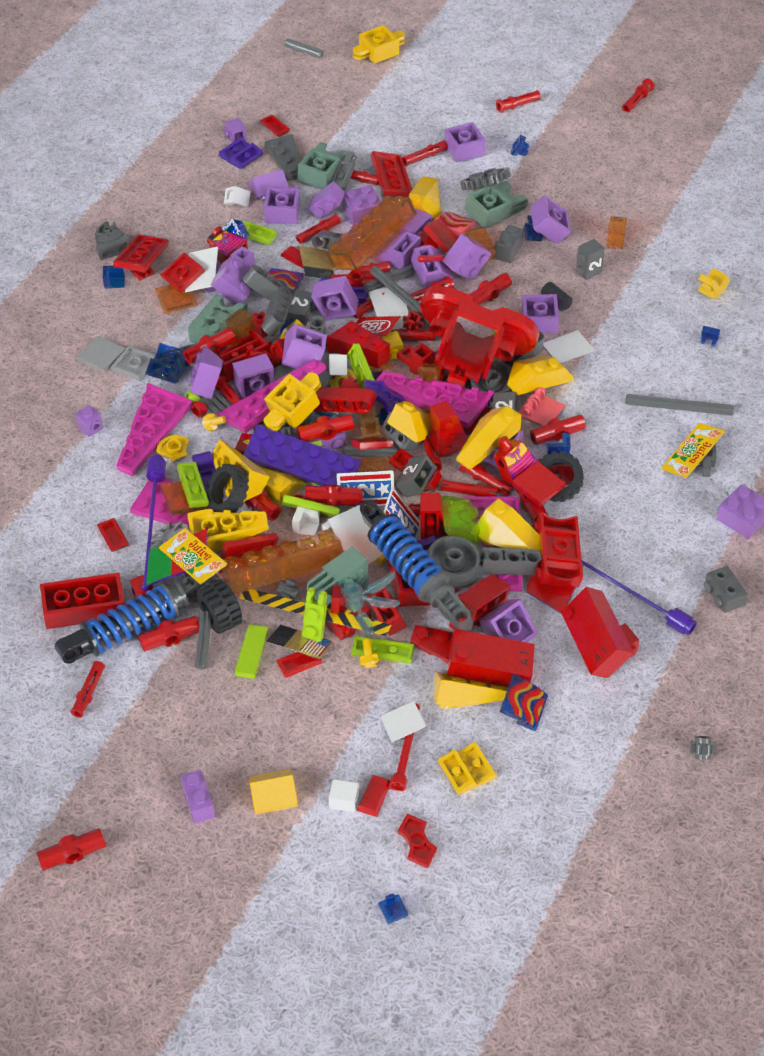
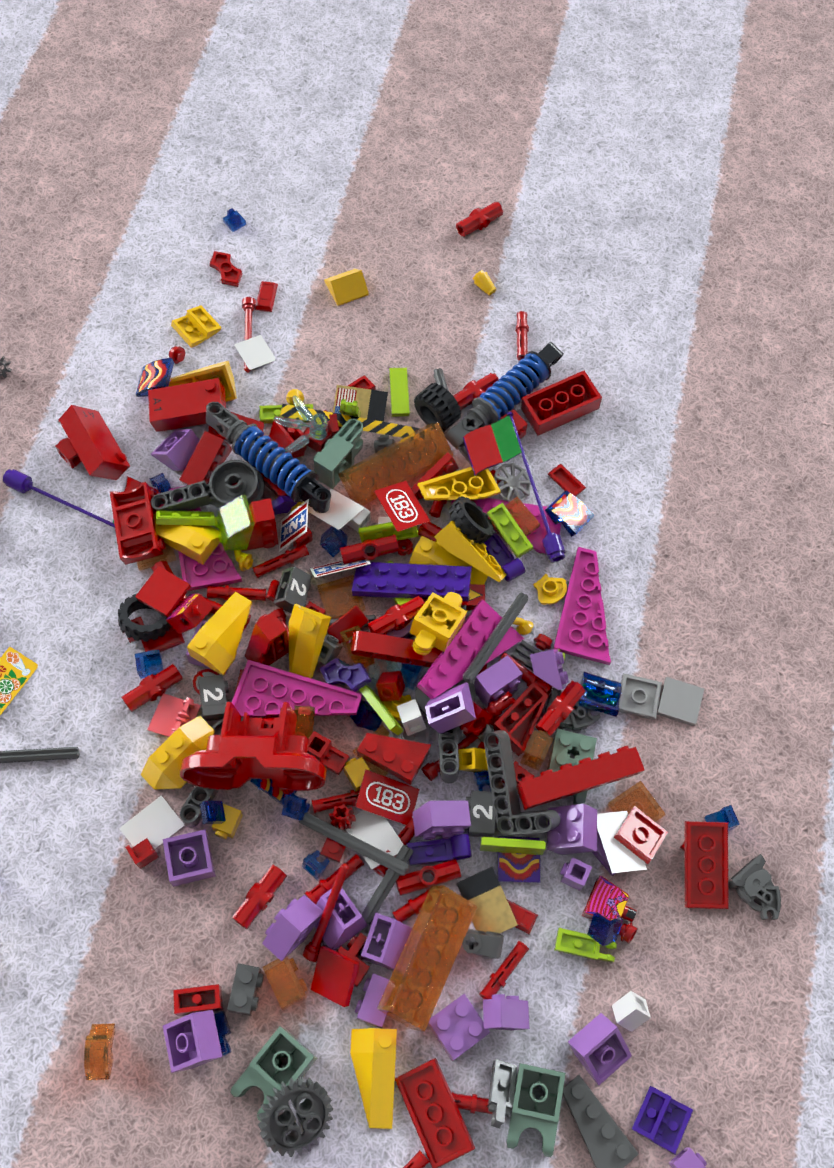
camera: 160 degrees right, 15 degrees up
(89, 420) = (647, 598): medium lavender brick -> none
(103, 761) = (484, 282): none -> yellow cone
(125, 498) = (570, 512): none -> slope
(192, 556) = (477, 443): sticker -> none
(197, 796) = (400, 265): medium lavender brick -> none
(215, 297) = (579, 778): none -> red brick
(242, 399) = (495, 638): none -> dark grey axle
(282, 205) = (563, 998): medium lavender brick -> none
(290, 278) = (512, 845): none -> lime tile
(291, 513) = (401, 506): none -> red sticker
(344, 795) = (287, 281): white panel -> none
(457, 223) = (325, 1025): slope -> none
(494, 731) = (177, 354): none -> red plate
(509, 540) = (185, 518): none -> lime tile
(529, 586) = (161, 483): none -> clear blue plate
(543, 241) = (197, 999): none -> red brick
(563, 299) = (172, 903): black piece -> none
(577, 324) = (142, 853): none -> red panel
(590, 259) = (132, 969): dark grey brick -> none

